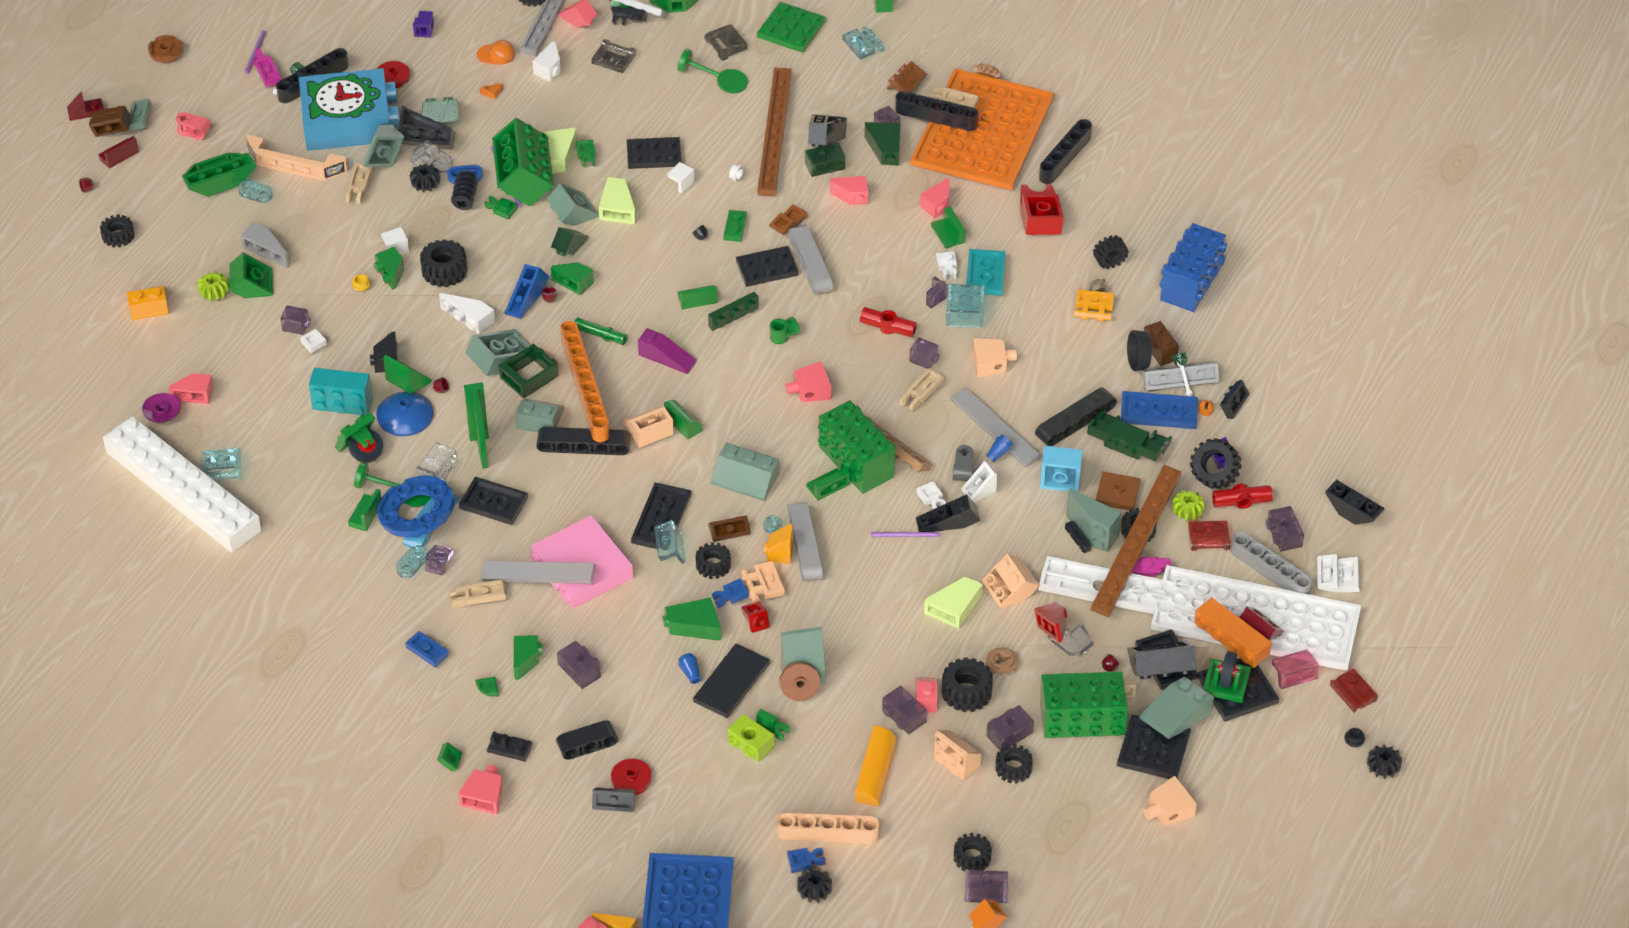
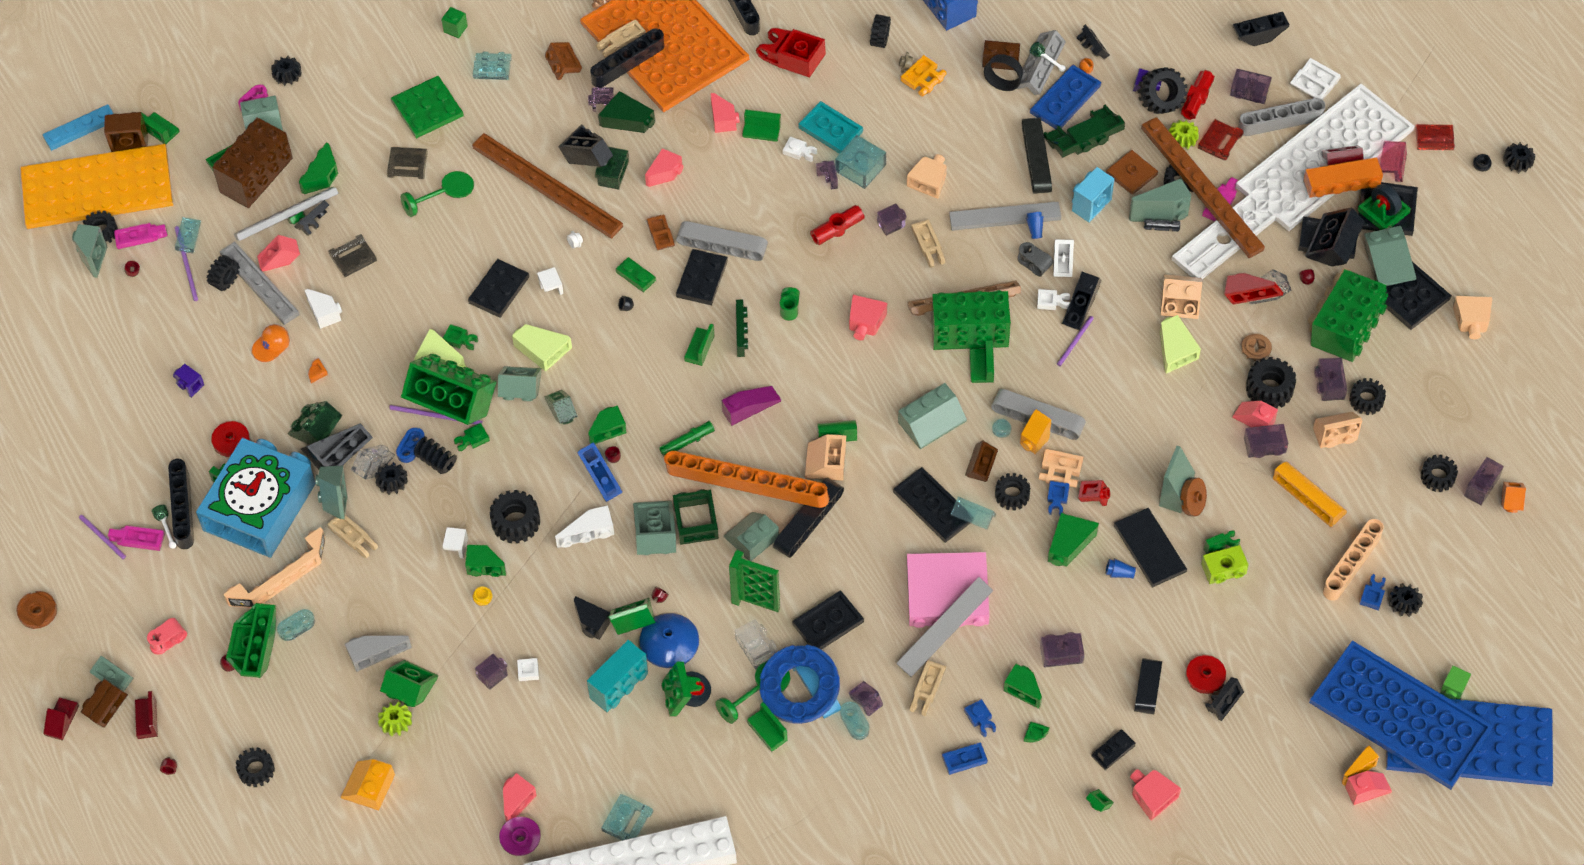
camera: 55 degrees left, 10 degrees up
(476, 641) = (980, 715): none -> blue plate

